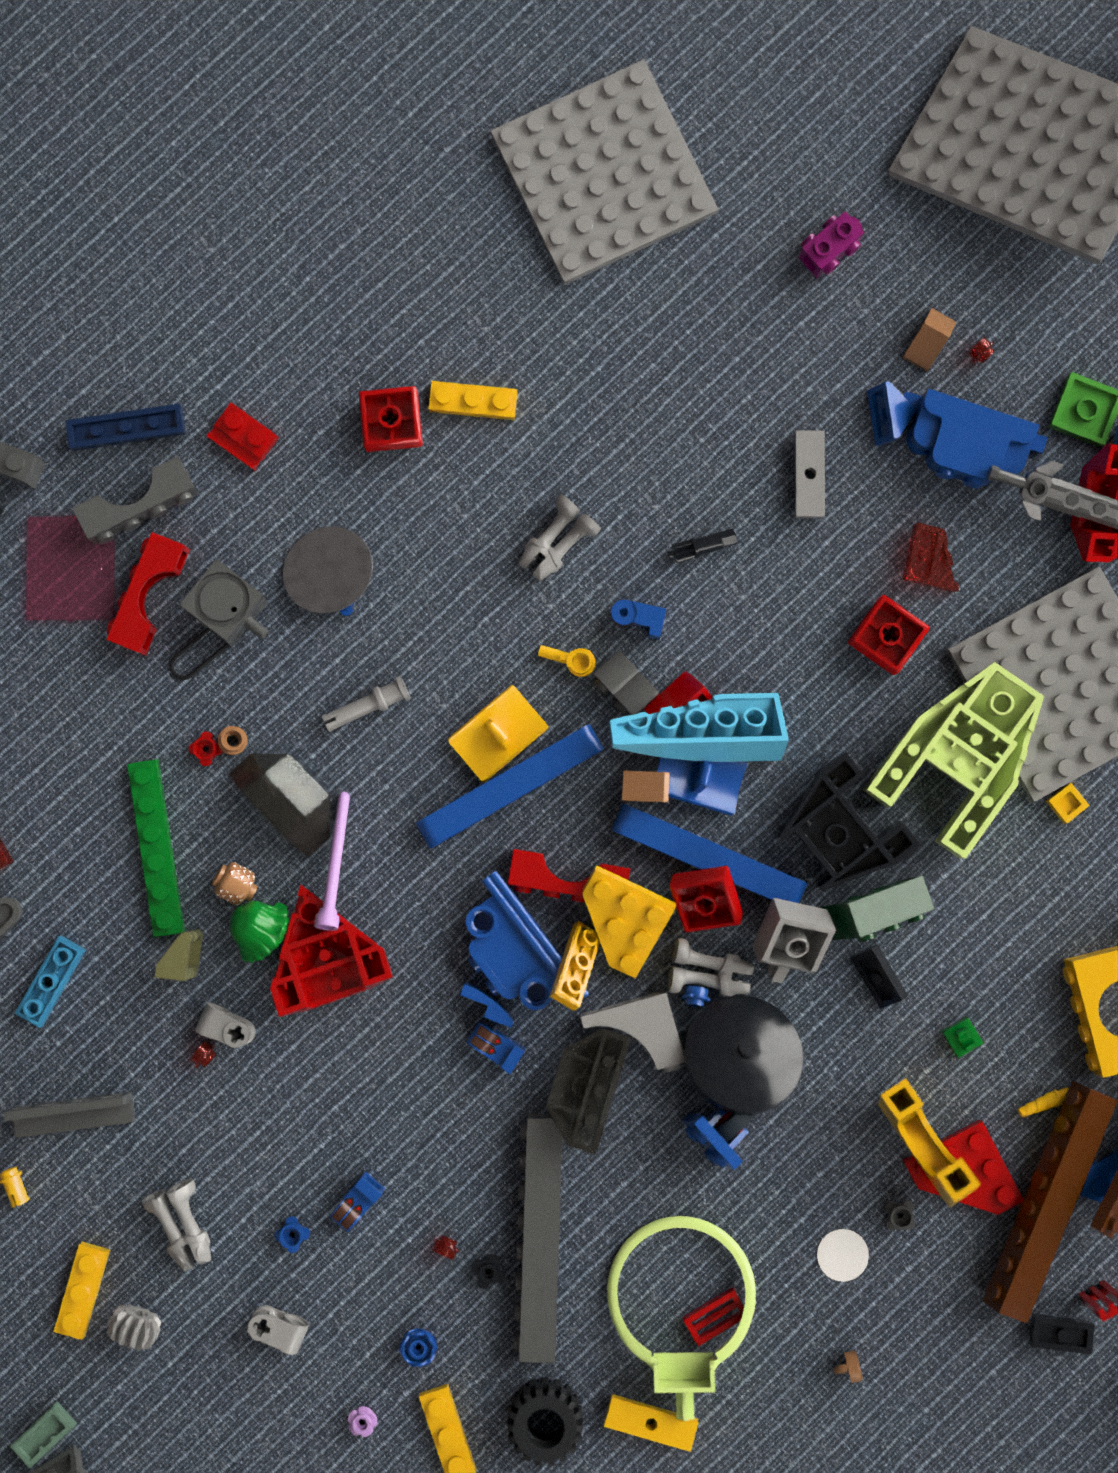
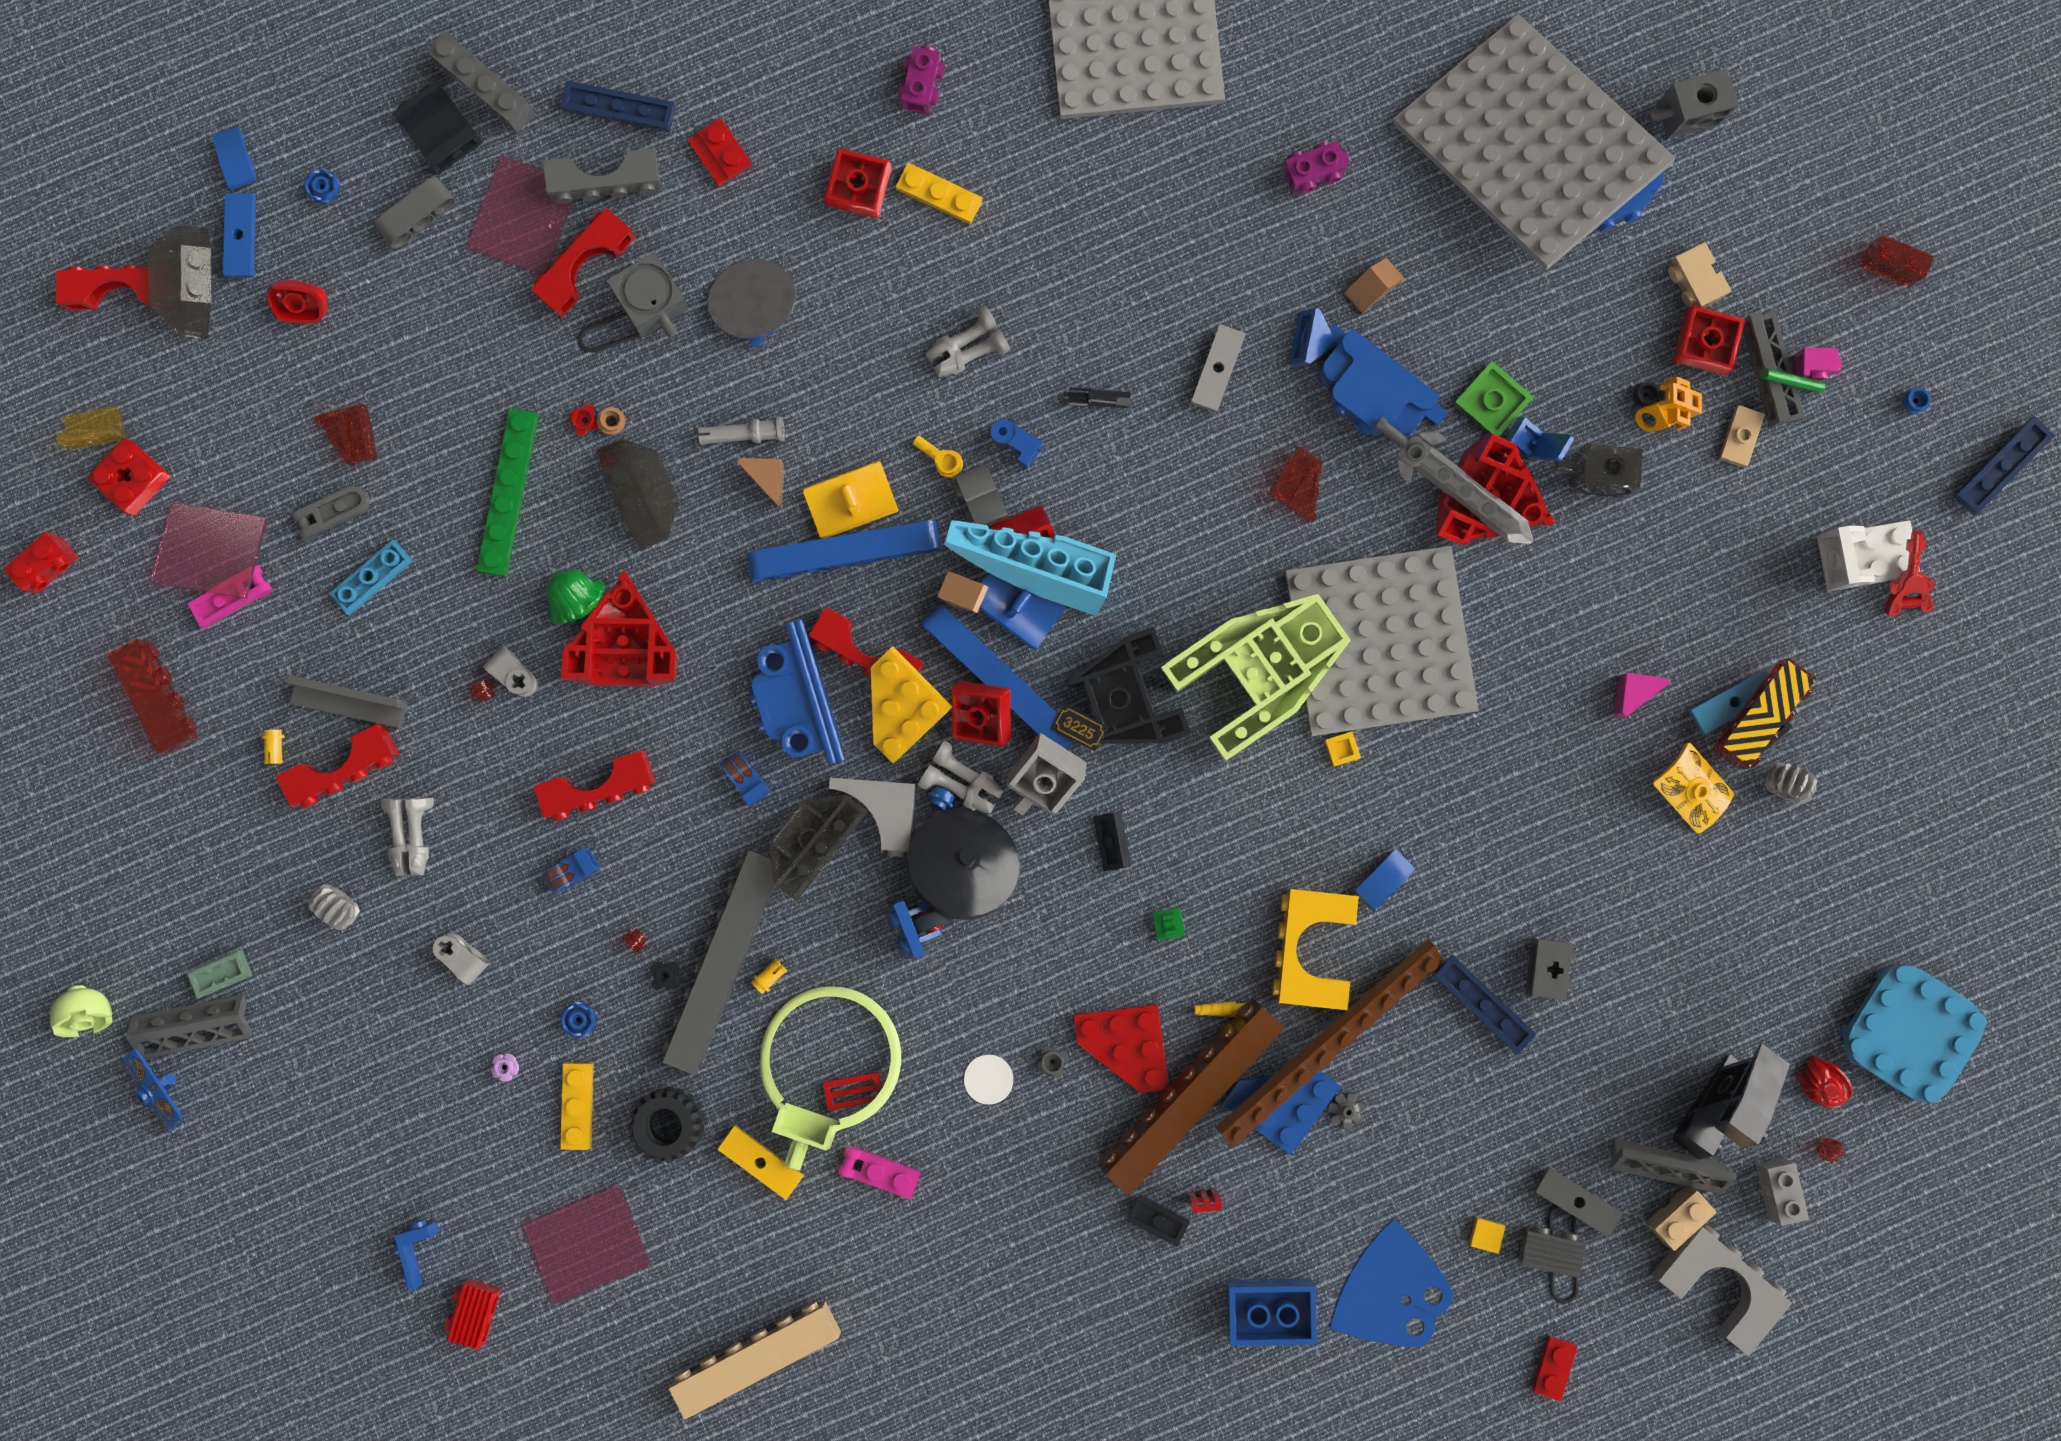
camera: 25 degrees right, 0 degrees up
(61, 1210) = (369, 750): none -> red arch
(82, 1290) = (299, 860): yellow plate -> none
(182, 958) = (495, 594): olive tile -> none
(234, 883) = (566, 548): medium nougat head -> none
(292, 1243) = (511, 880): blue plate -> none
(321, 1131) = (629, 774): none -> red arch
(327, 917) = (636, 605): lavender piece -> none
(406, 738) = (767, 474): none -> medium nougat slope
(414, 287) = (923, 71): none -> magenta brick
(494, 1011) = (756, 743): blue slope -> none
(575, 966) = (841, 730): yellow tile -> none
(590, 1234) = (768, 976): none -> yellow pin
(770, 1387) = (879, 1172): none -> dark pink plate
(808, 877) = (1079, 727): none -> black sticker
(852, 1366) = (957, 1179): medium nougat tile -> none
(880, 909) = (1134, 780): wedge -> none
(905, 1113) = (1095, 1001): yellow arch -> none
(907, 635) = (1238, 520): red brick -> none
(981, 350) = (1417, 312): clear red plate -> none

